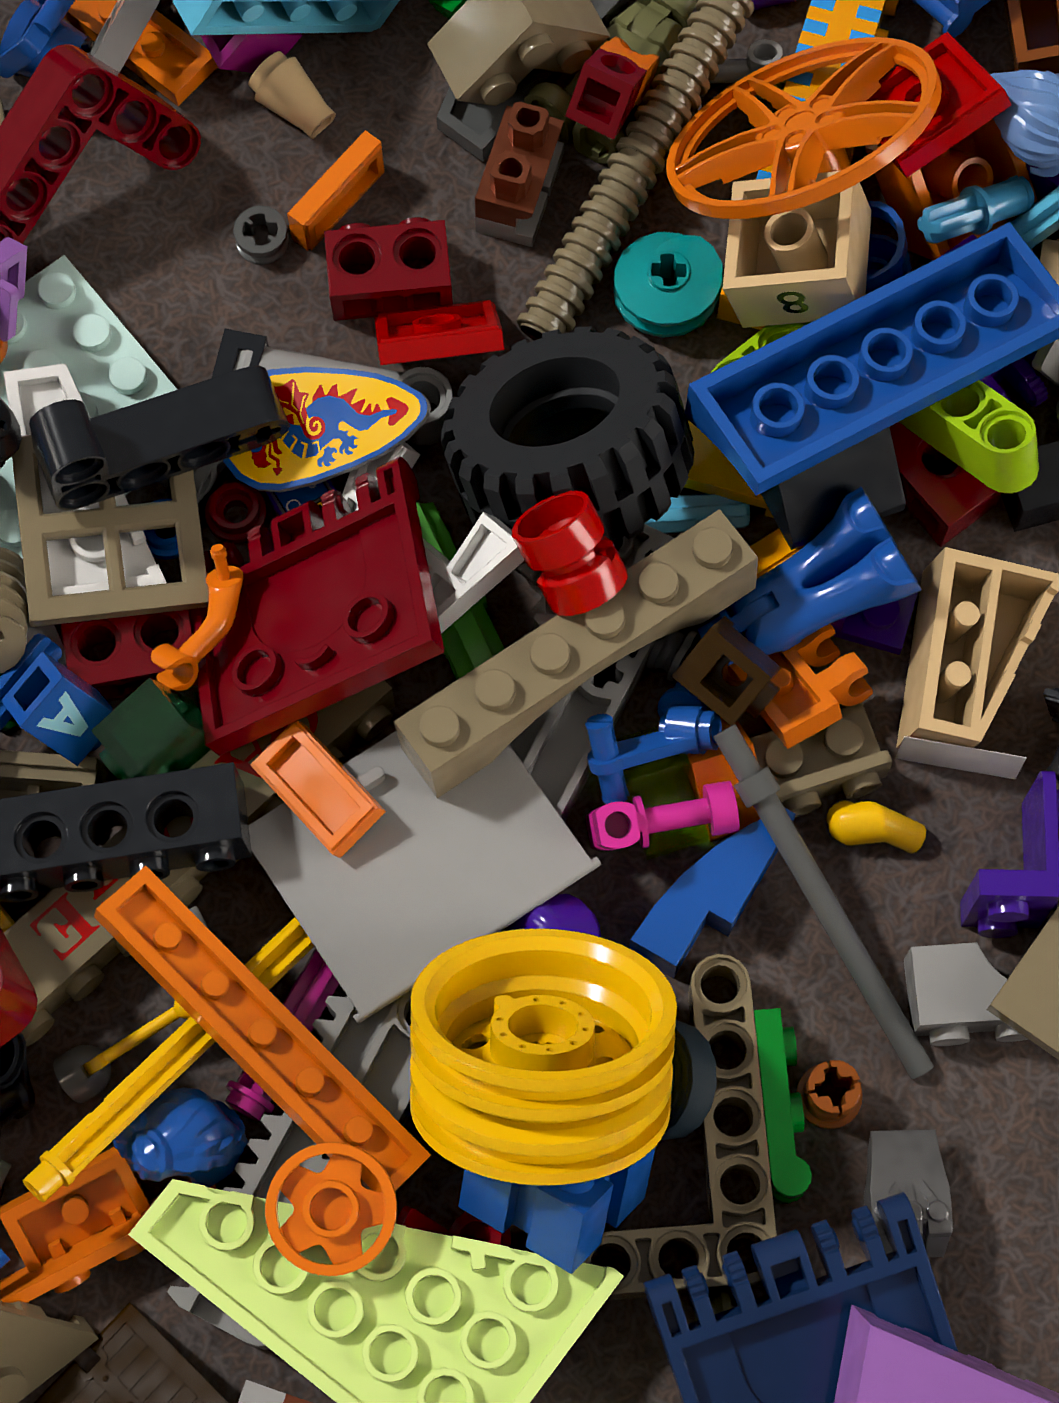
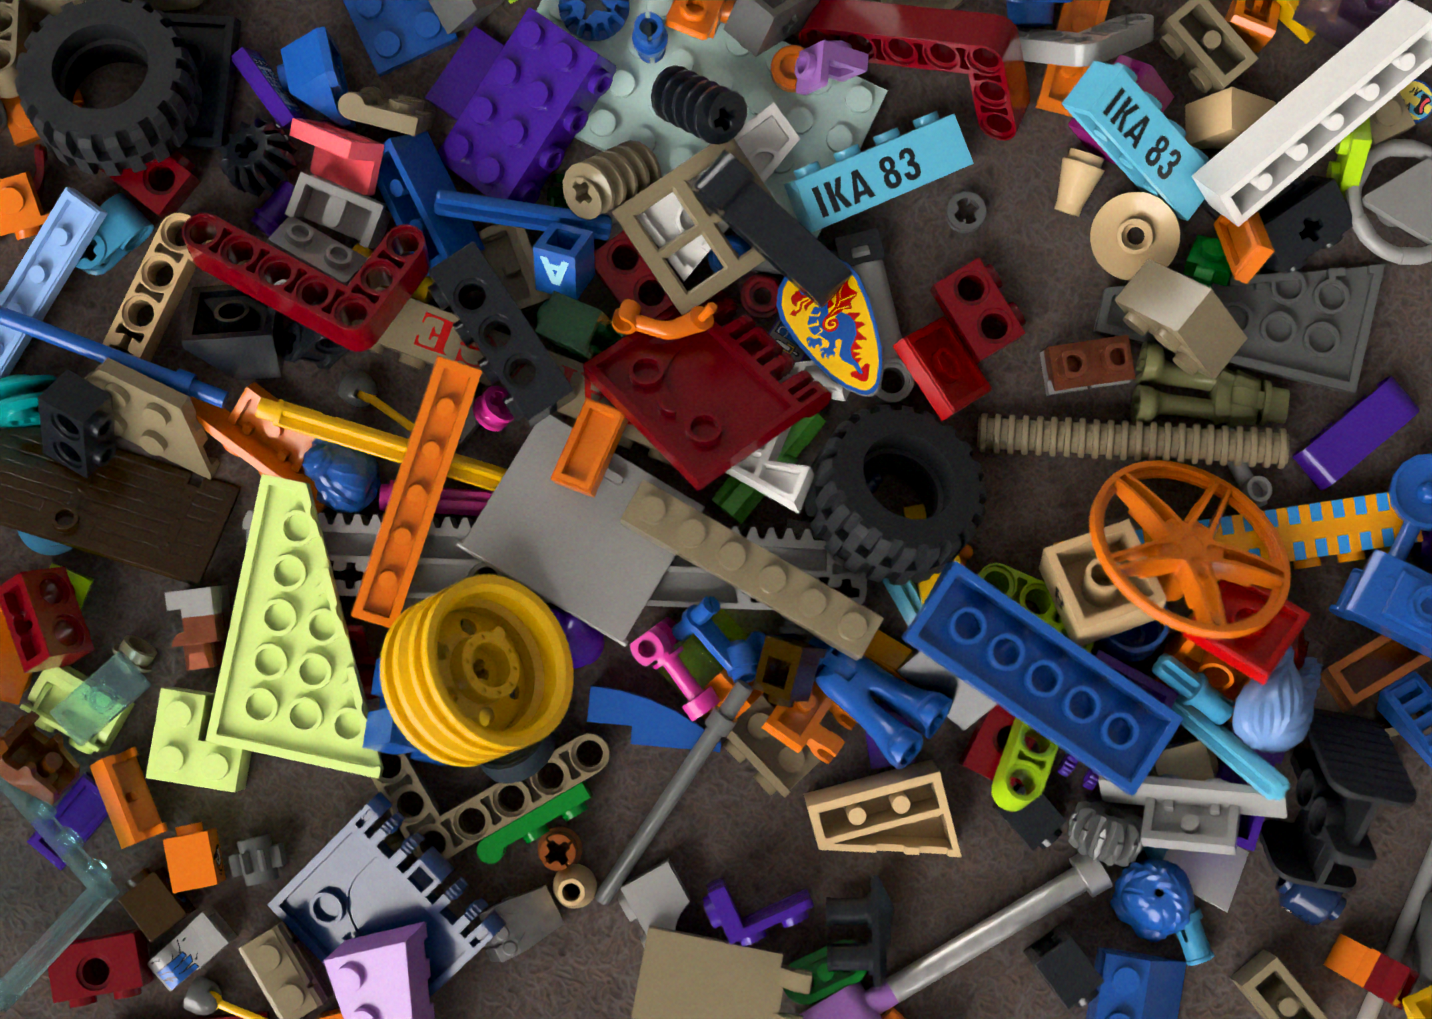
camera: 65 degrees right, 15 degrees up
(159, 292) = (878, 173): none -> medium azure brick
(204, 892) = (491, 410): none -> dark pink bush
(331, 1209) = (330, 587): orange wheel -> none
(336, 191) = (1018, 248): orange tile -> none
(383, 31) = (1113, 223): none -> tan dish
(568, 545) = (801, 538): red wheel -> none
(611, 86) = (1172, 400): dark red leg -> none
(668, 309) = (1036, 491): teal piece -> none
(874, 823) = (743, 802): yellow arm -> none
(881, 1109) = (578, 875): none -> tan cone
(960, 757) = (812, 838): white sticker -> none

